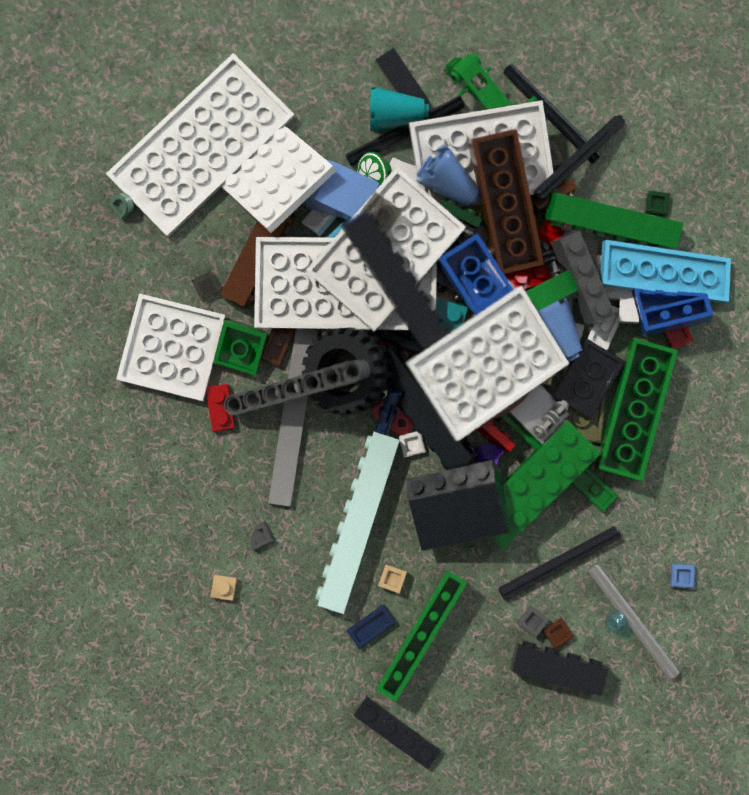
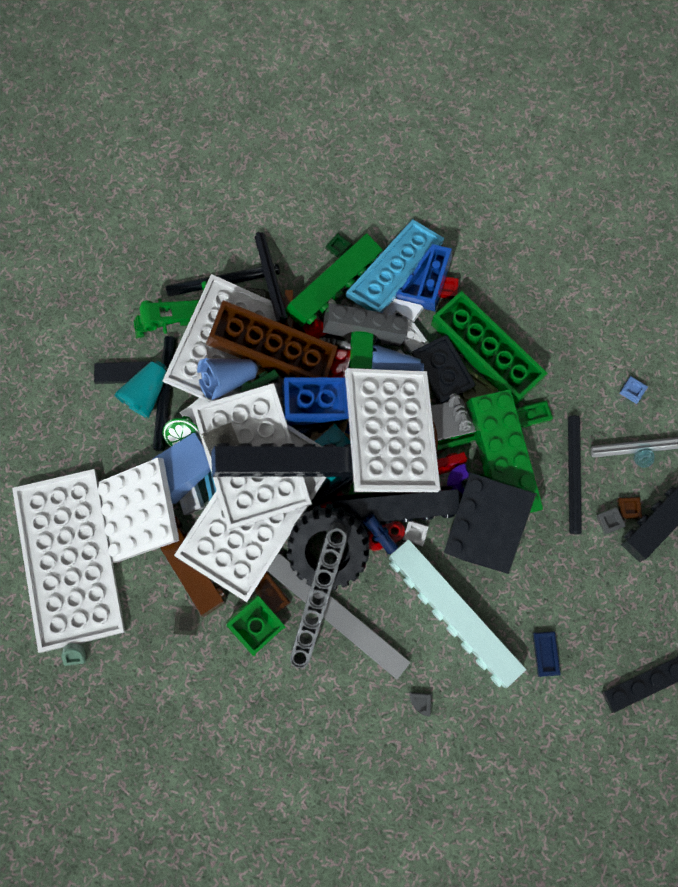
camera: 65 degrees left, 10 degrees down
(171, 347) = (218, 685): white plate -> none
(219, 416) = (287, 672): red plate -> none
(223, 587) = (446, 761): tan plate -> none
(392, 578) = (516, 612): tan plate -> none
(420, 635) = (577, 617): green brick -> none

